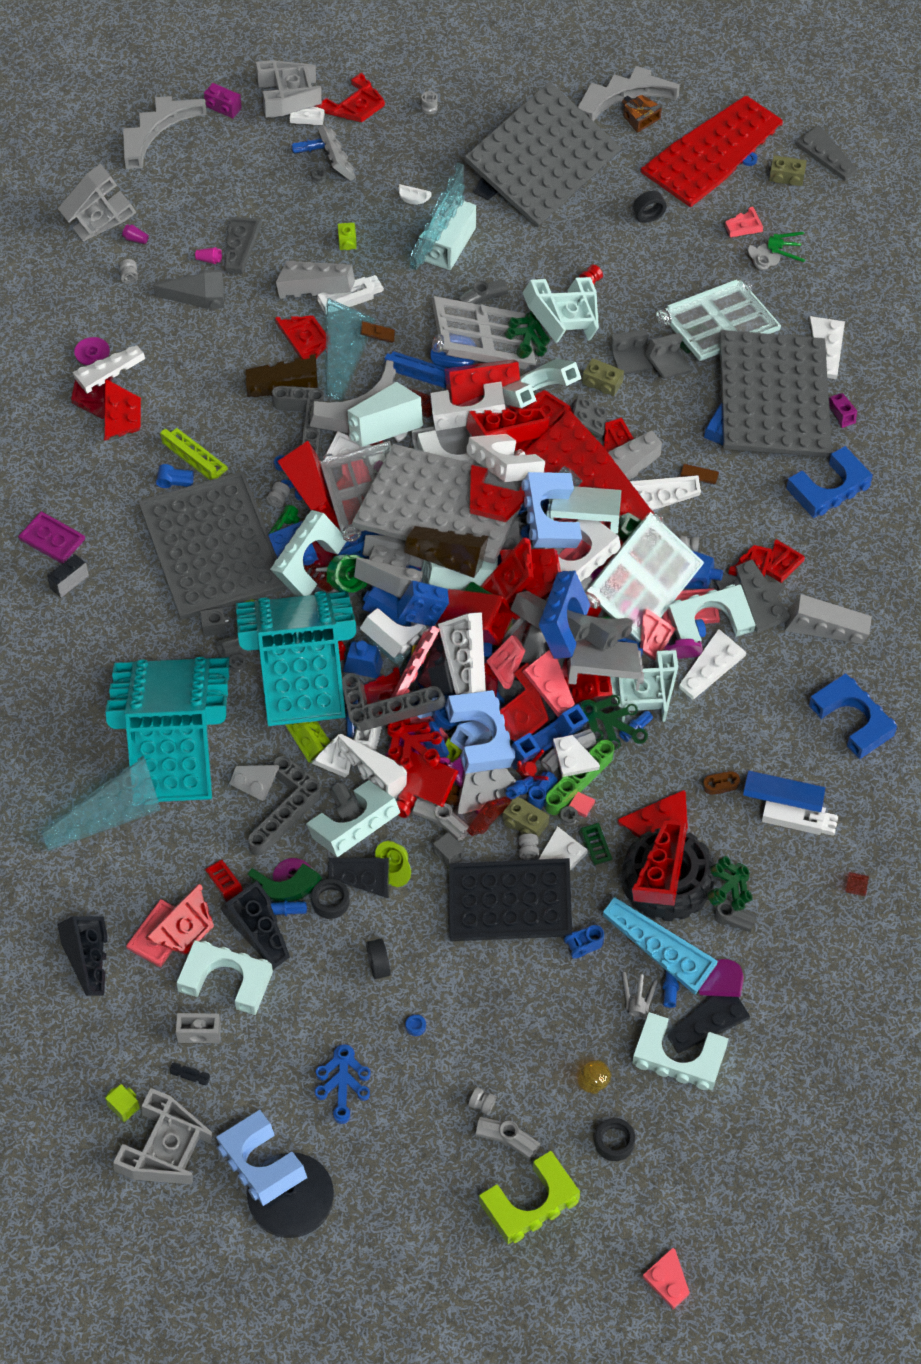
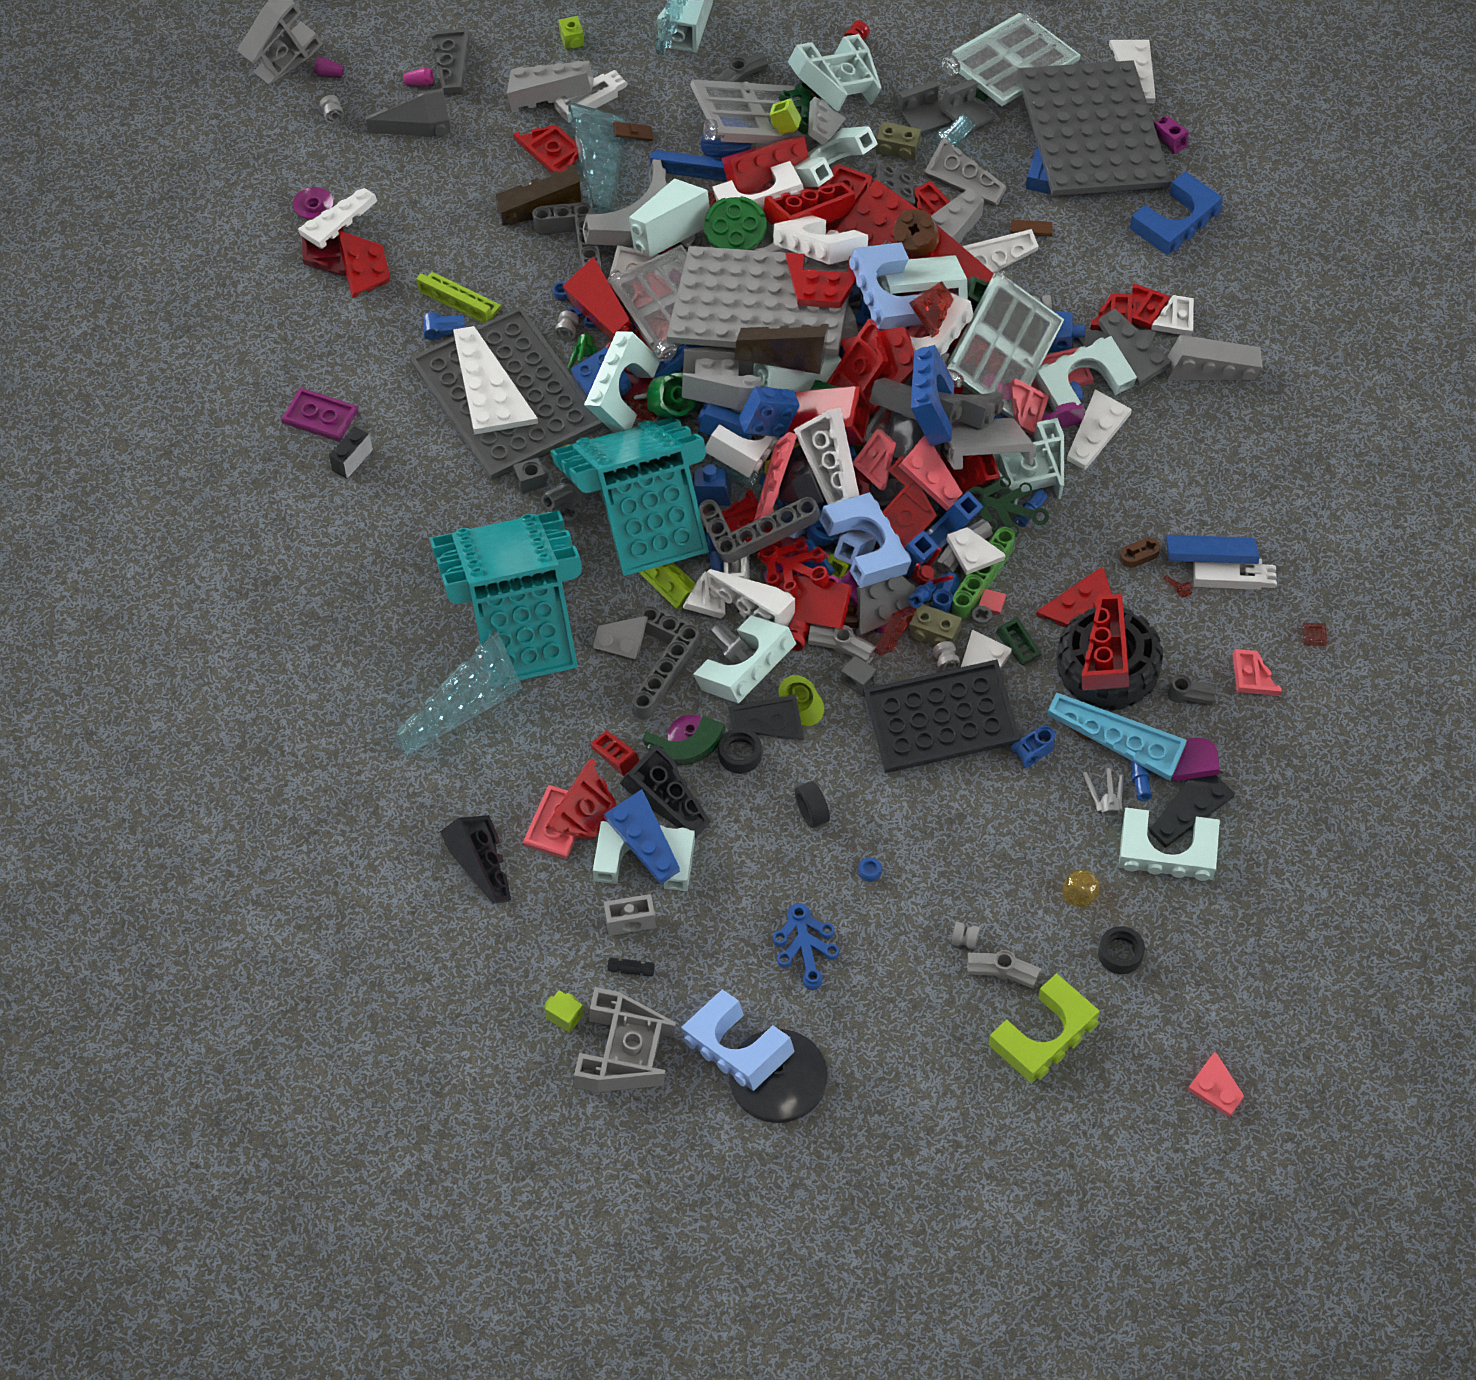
camera: 10 degrees left, 0 degrees up
(197, 543) = (489, 390): none -> white wing
(226, 959) = (643, 835): none -> blue wing
(286, 908) = (697, 769): blue axle -> none
(439, 431) = (735, 224): none -> green tile
(506, 341) = (785, 117): none -> lime brick
(540, 350) = (823, 121): none -> light grey wing
(583, 464) = (907, 229): none -> reddish brown brick
(583, 535) = (932, 307): none -> clear red wing
(648, 413) = (960, 172): none -> light grey wing
(649, 380) = (956, 130): none -> clear light blue piece
(740, 875) = (1183, 649): dark green plant -> none
(751, 823) = (1182, 589): none -> clear red hand
(792, 911) = (1252, 674): none -> coral wing
(806, 575) = (1176, 316): none -> white wing
(846, 692) = (1252, 434): blue arch -> none

